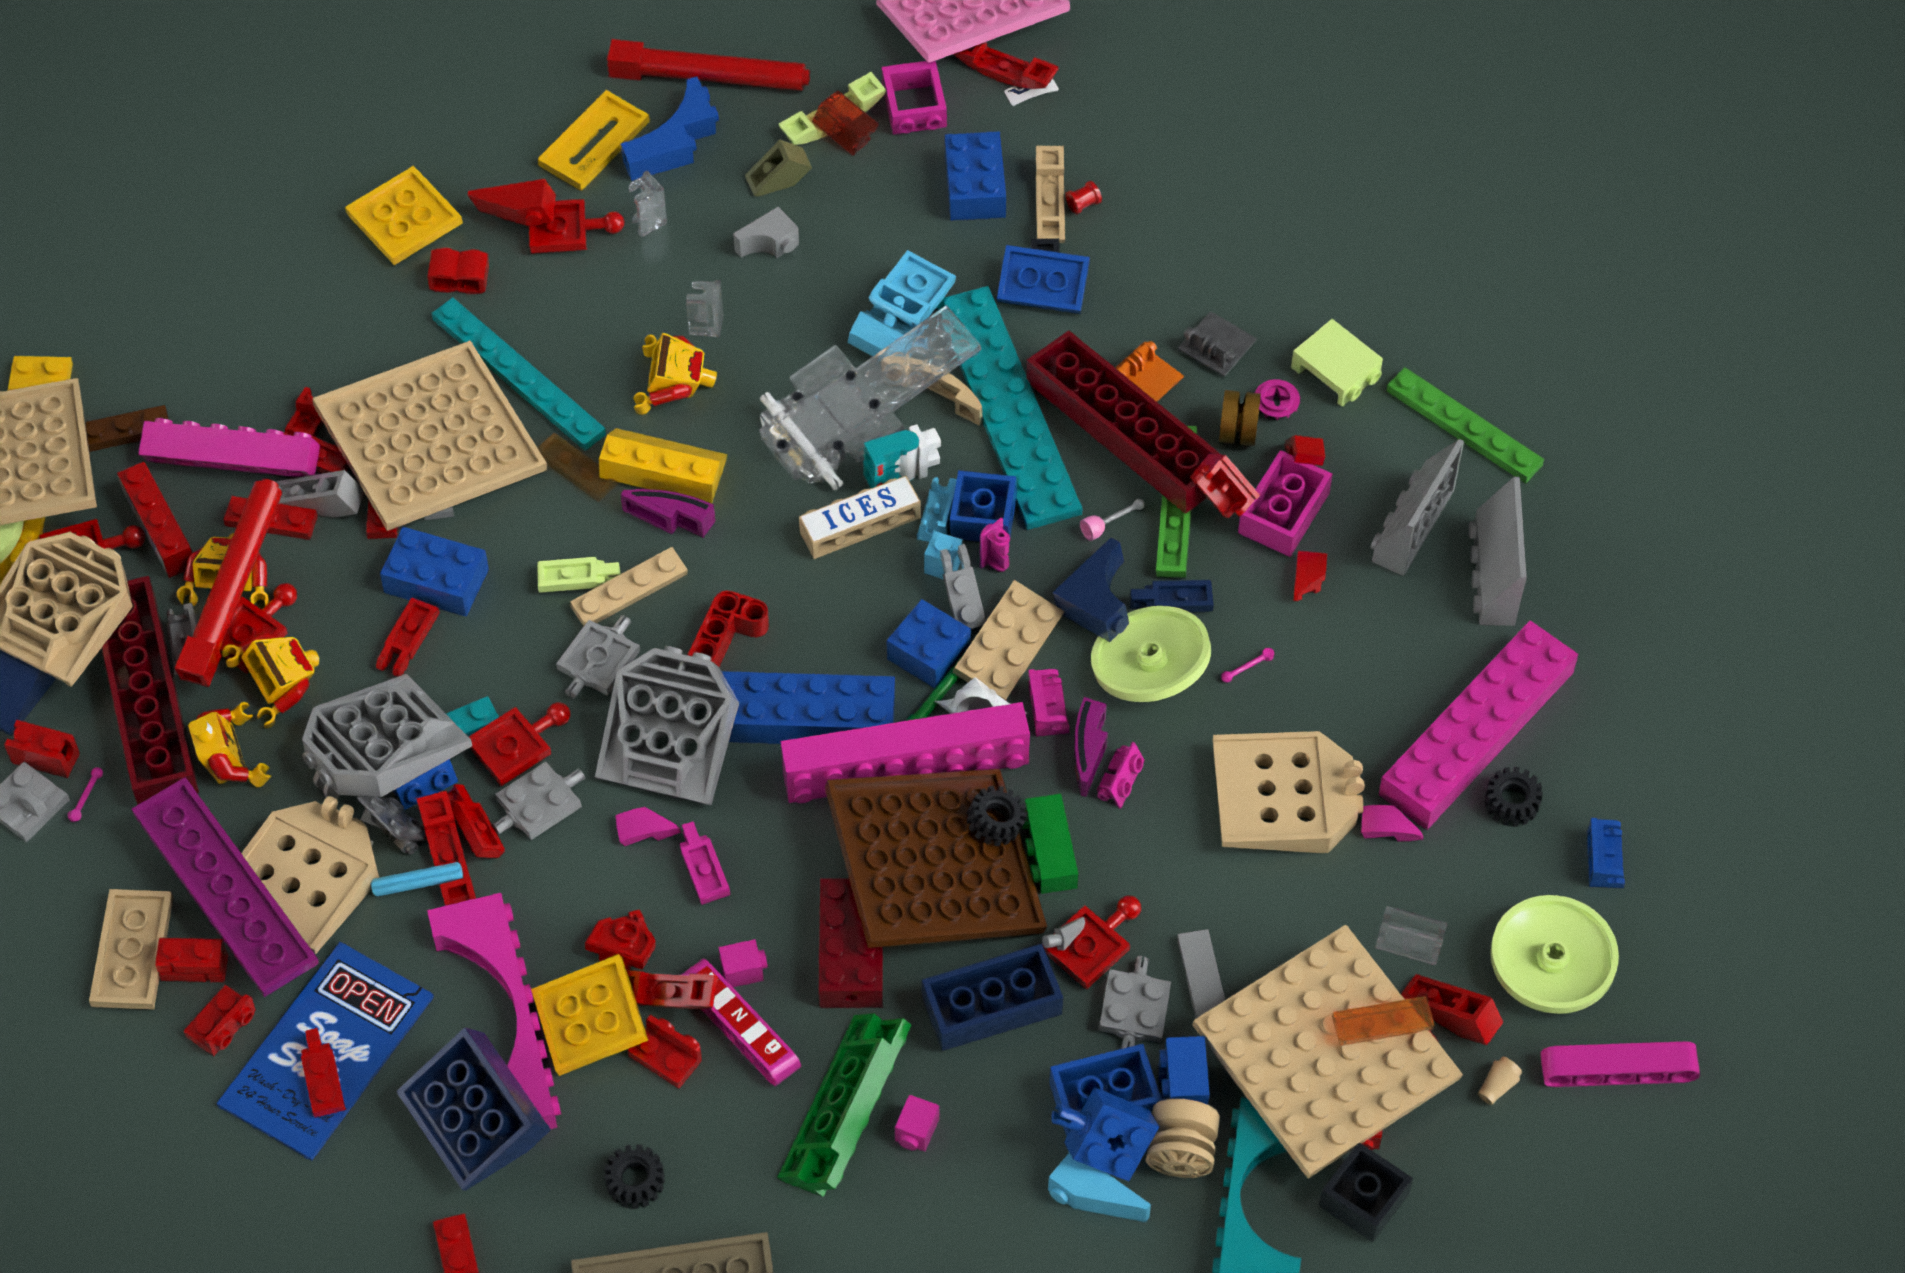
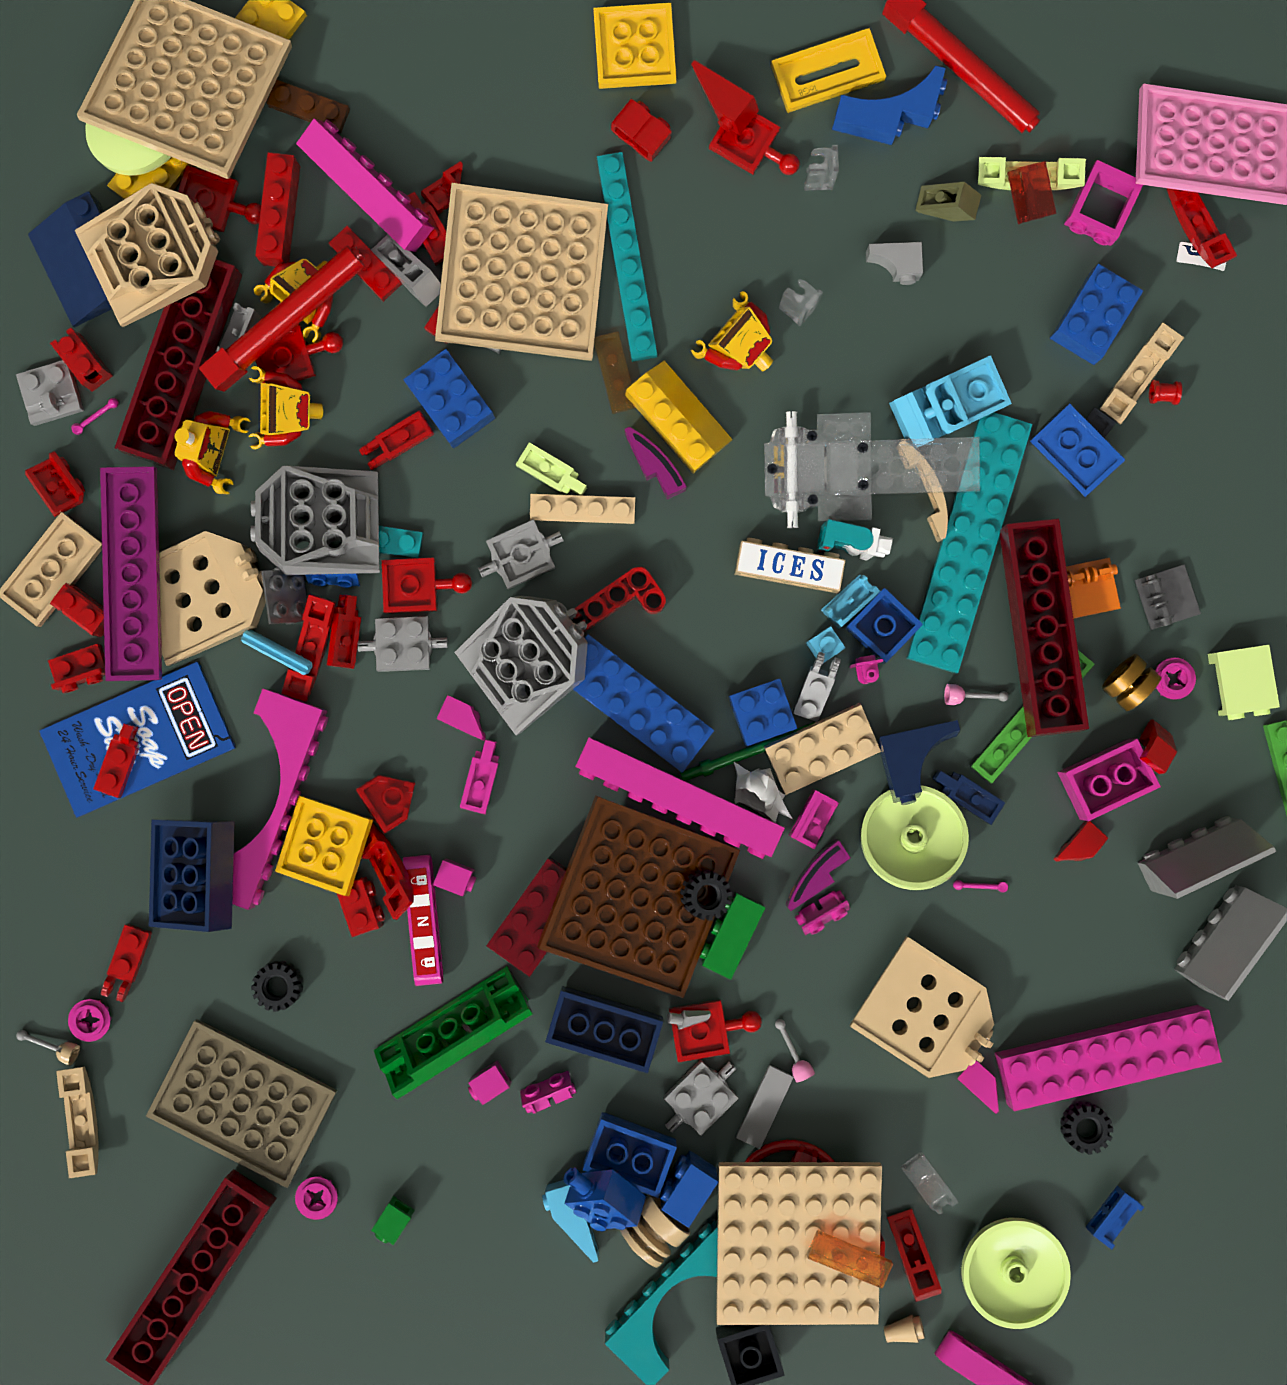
camera: 35 degrees right, 30 degrees up
(88, 868) = (56, 484): none -> red bracket
(974, 1106) = (536, 1096): none -> dark pink hinge
(1210, 918) = (801, 1069): none -> hinge
(1224, 485) = (1069, 747): red hinge -> none

